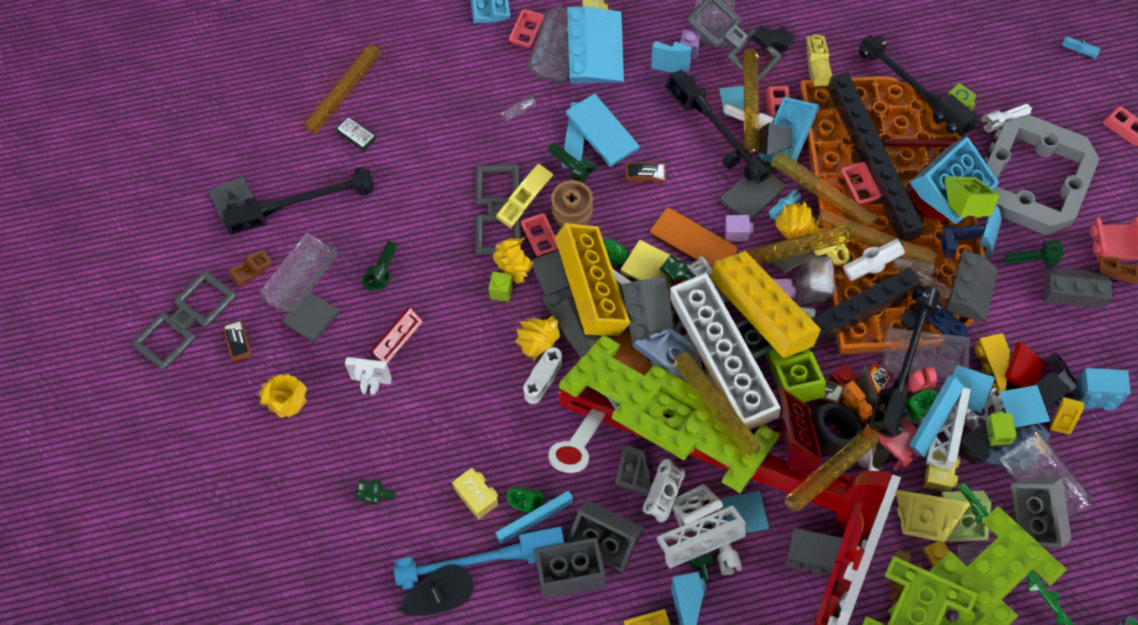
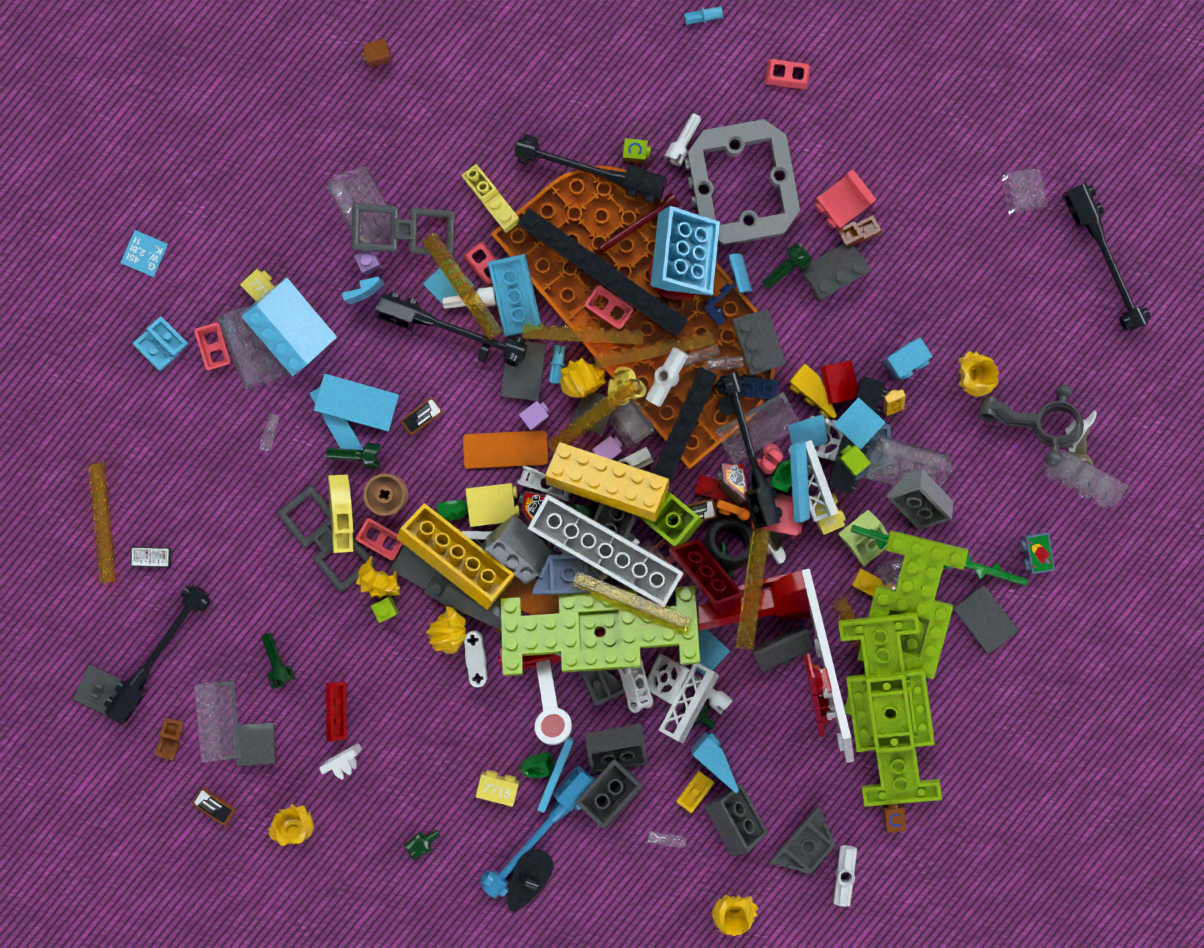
camera: 35 degrees left, 25 degrees up
(183, 320) = (155, 819): dark grey bar -> none
(675, 269) = (516, 499): dark green piece -> none
(768, 37) = (441, 196): black tile -> none
(774, 138) = (510, 315): black slope -> none
(928, 515) = (840, 563): light yellow wing -> none
(970, 196) = (707, 266): lime slope -> none
(1063, 371) = (873, 367): black tile -> none

